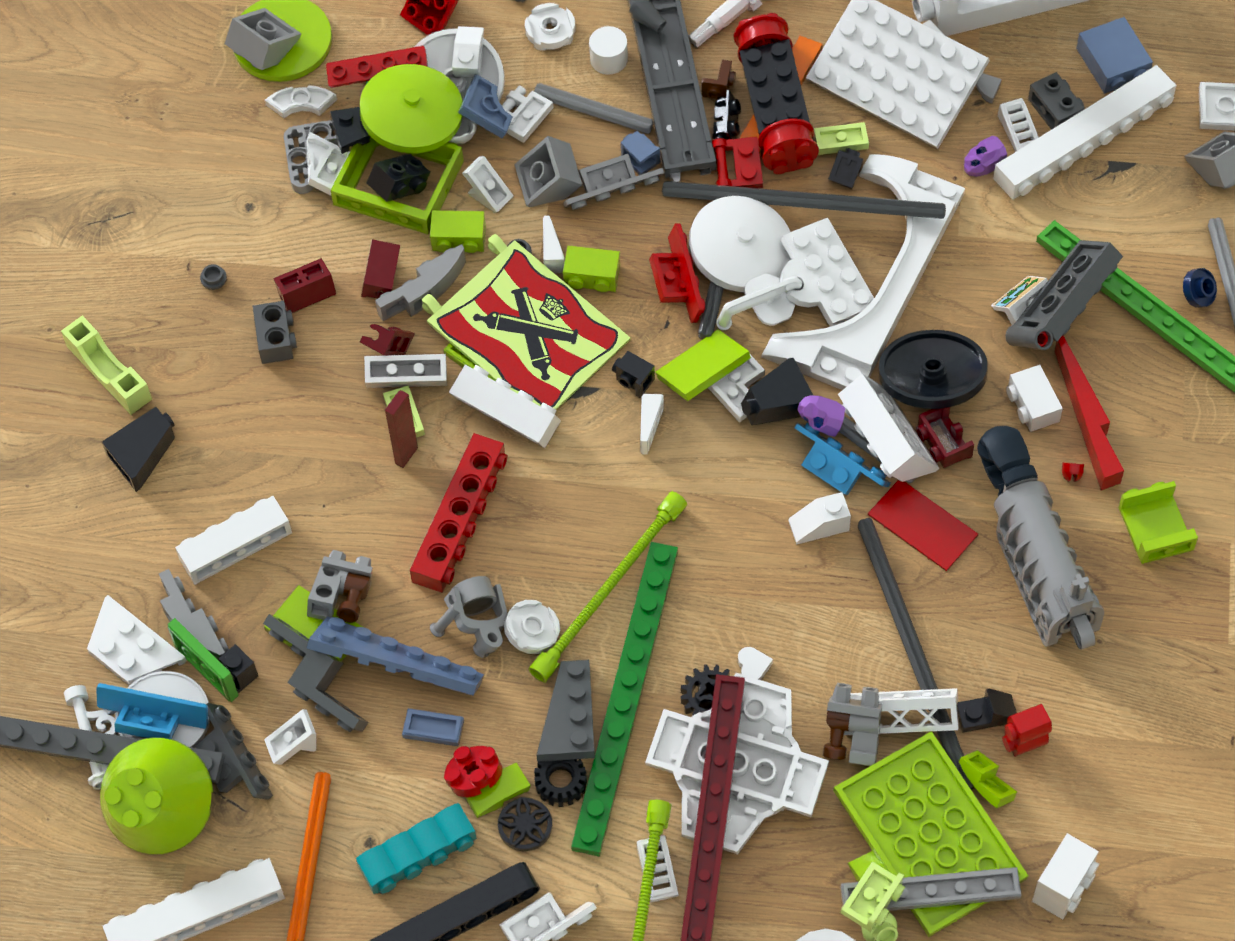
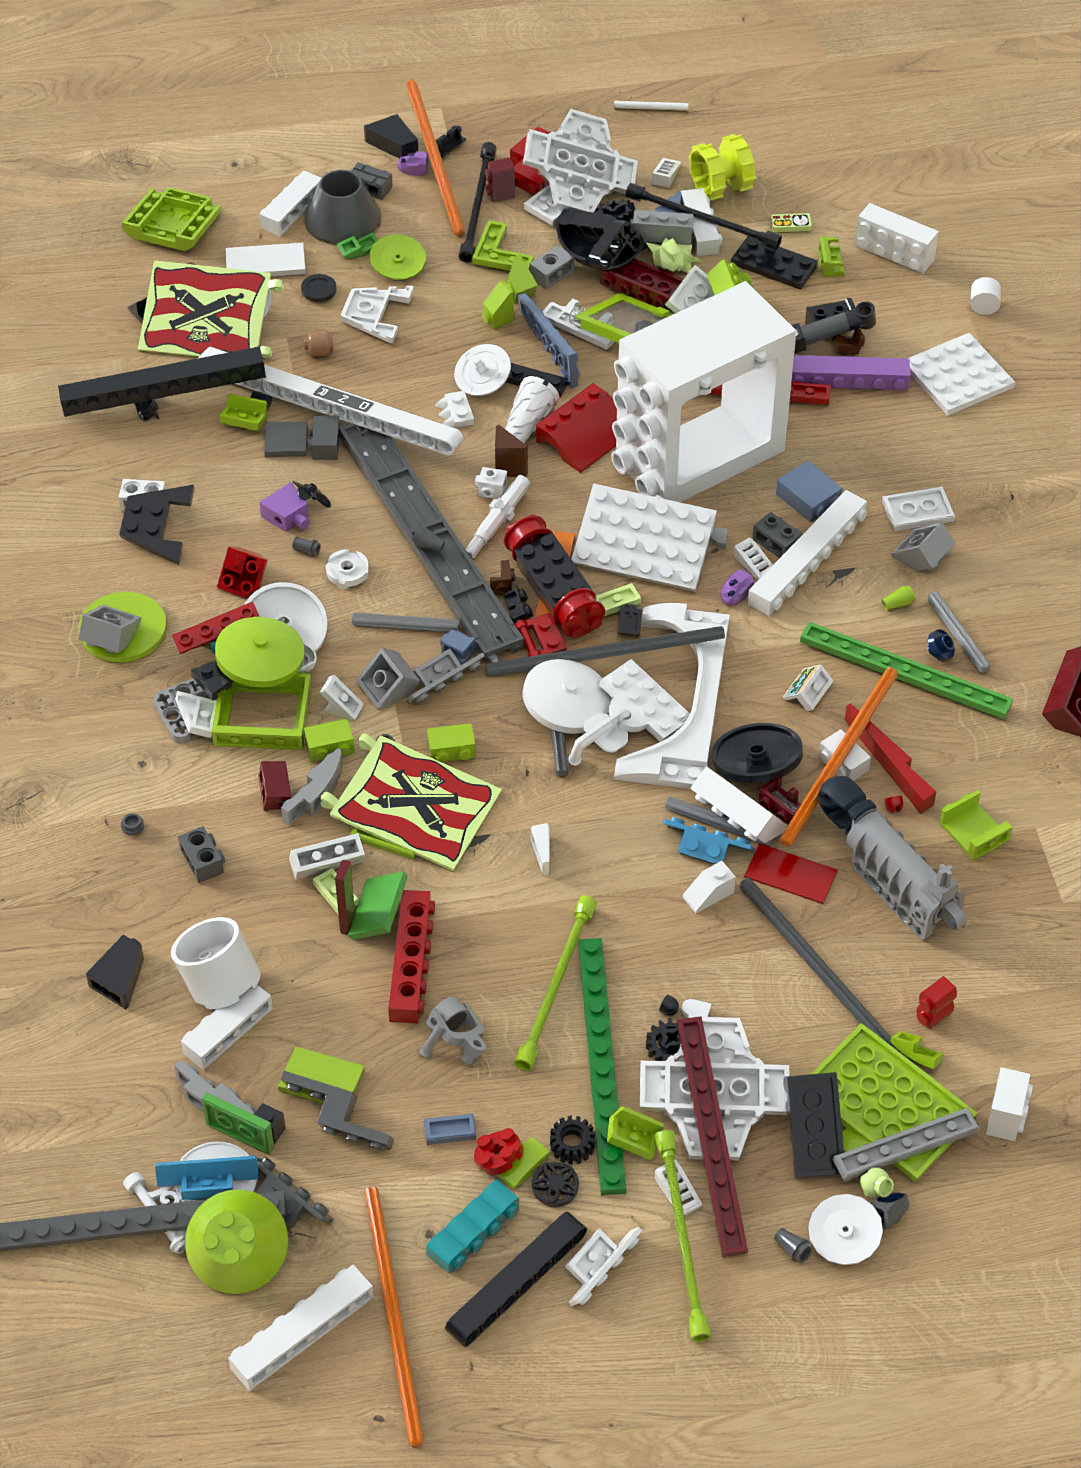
camera: 20 degrees left, 10 degrees down
(93, 353) = (44, 902): yellowish green arch -> none
(129, 645) = (165, 1131): white wing -> none
(237, 468) = (215, 962): none -> white brick
(292, 737) = (337, 1163): white slope -> none
(305, 285) = (216, 811): dark red hinge -> none
(306, 99) = (150, 672): white tile -> none
(339, 638) = (348, 1076): sand blue wing -> none
(340, 578) = (333, 1030): light grey hips -> none
(390, 341) = (307, 835): dark red hinge -> none
(398, 177) = (266, 708): black brick -> none
(442, 443) = (377, 905): none -> bright green tile
(468, 51) = (292, 599): white slope -> none
(483, 107) = (319, 639): sand blue tile -> none
(505, 405) = (420, 863): white brick -> none
(528, 115) = (353, 641): white plate -> none
(531, 627) = (504, 1029): white tile -> none
(552, 251) = (412, 734): white slope -> none
(569, 718) = (564, 1090): dark grey wing -> none
(608, 50) = (403, 575): white piece -> none
(627, 790) = (633, 1132): none -> lime bracket
(634, 373) = (516, 813): black brick -> none
(676, 276) = (523, 731): red bracket -> none
(703, 365) = (570, 794): lime tile -> none
(724, 648) = (669, 1005): none -> black hinge
(733, 387) = (600, 807): white plate -> none
(776, 395) = (642, 802): black slope -> none
(822, 414) = (684, 806): medium lavender rock -> none
(832, 838) = (814, 1123): none -> black hinge
(855, 716) = (801, 1027): light grey hips -> none
(872, 896) = (864, 1157): yellowish green bracket -> none
(920, 701) = (827, 1007): white fence -> none
(986, 711) = (896, 1000): black slope -> none
(1026, 396) = (839, 755): none -> orange axle
(1064, 295) = (841, 672): dark grey hinge -> none
(1172, 216) = (899, 598): none -> lime cone

